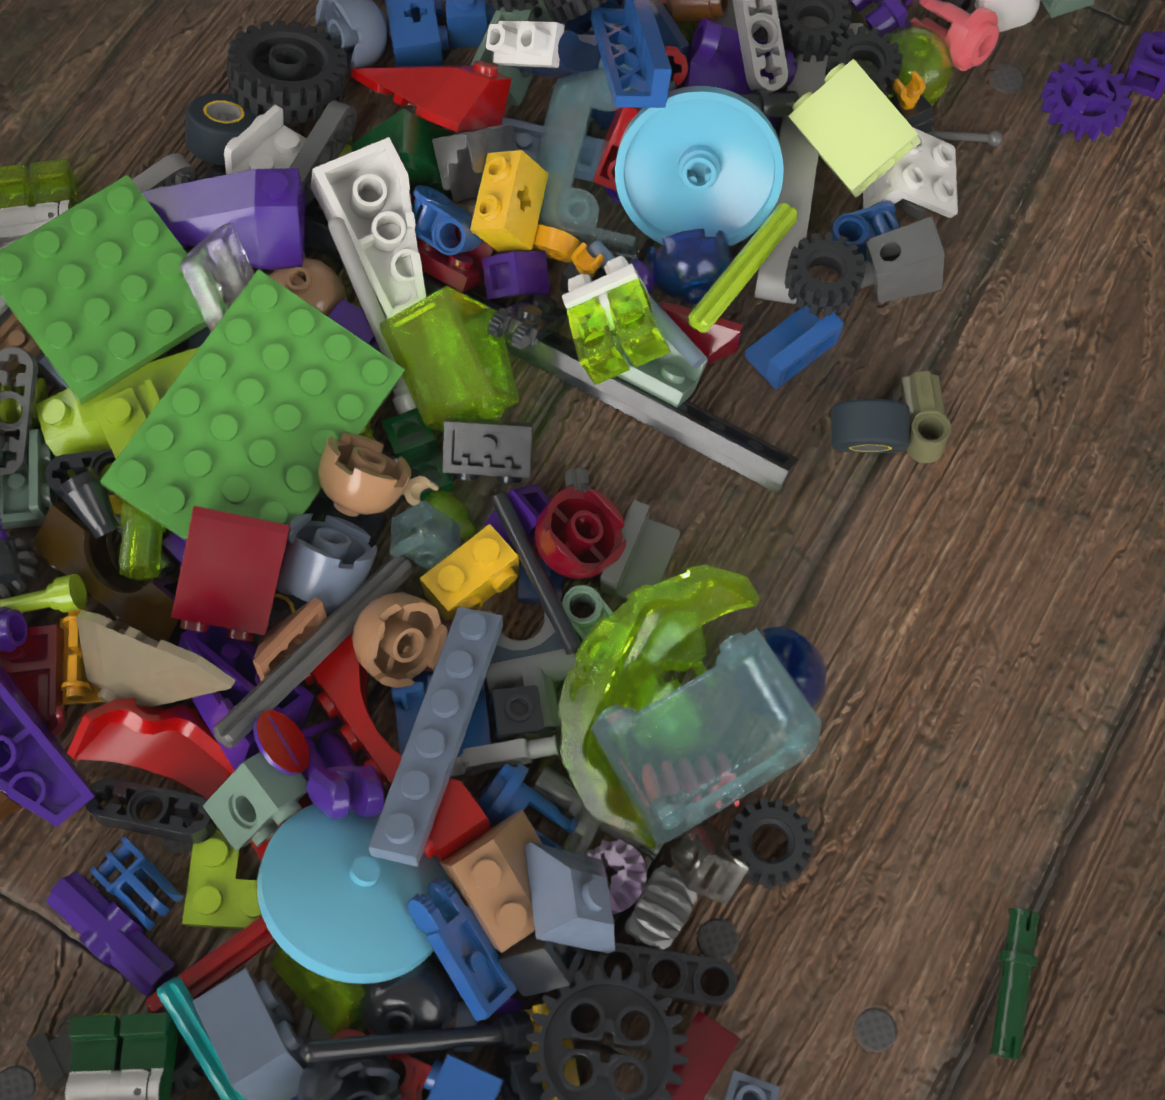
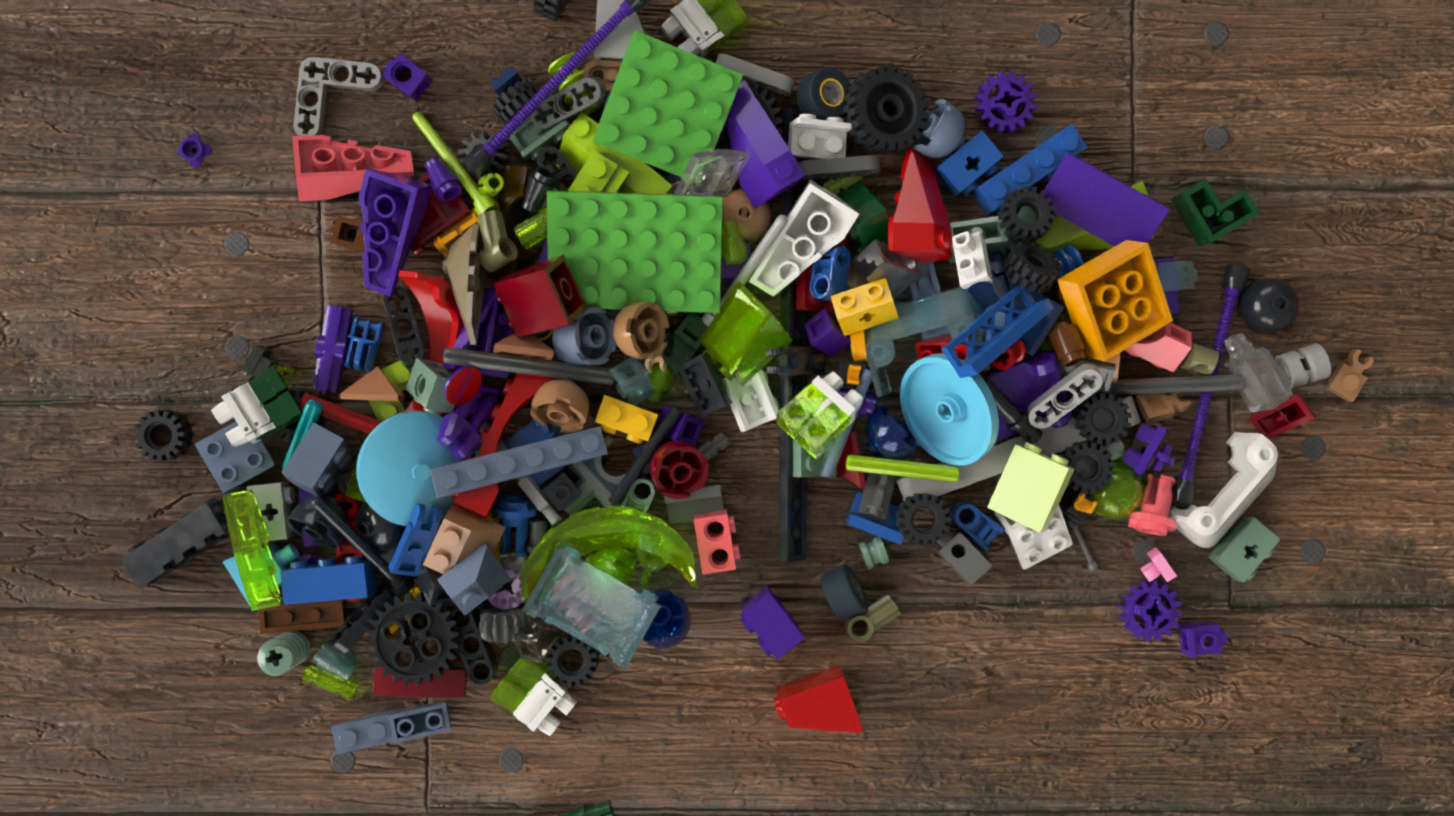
camera: 60 degrees right, 20 degrees up
(41, 565) = (489, 184): none -> lime pin
(128, 600) = (497, 247): none -> olive piece
(206, 897) = (373, 387): none -> nougat slope
(335, 306) = (733, 245): none -> clear neon green cone
(552, 404) = (753, 402): none -> white bracket
(712, 540) = (709, 542): none -> coral brick
(760, 324) = (877, 495): none -> dark grey hinge
(808, 929) = (531, 695): none -> hips
(836, 368) = (873, 552): none -> sand green wheel
(861, 532) = (772, 622): none -> dark purple brick
(1006, 524) = (818, 703): none -> red slope
(1033, 63) = (1157, 566): none -> bright pink tile

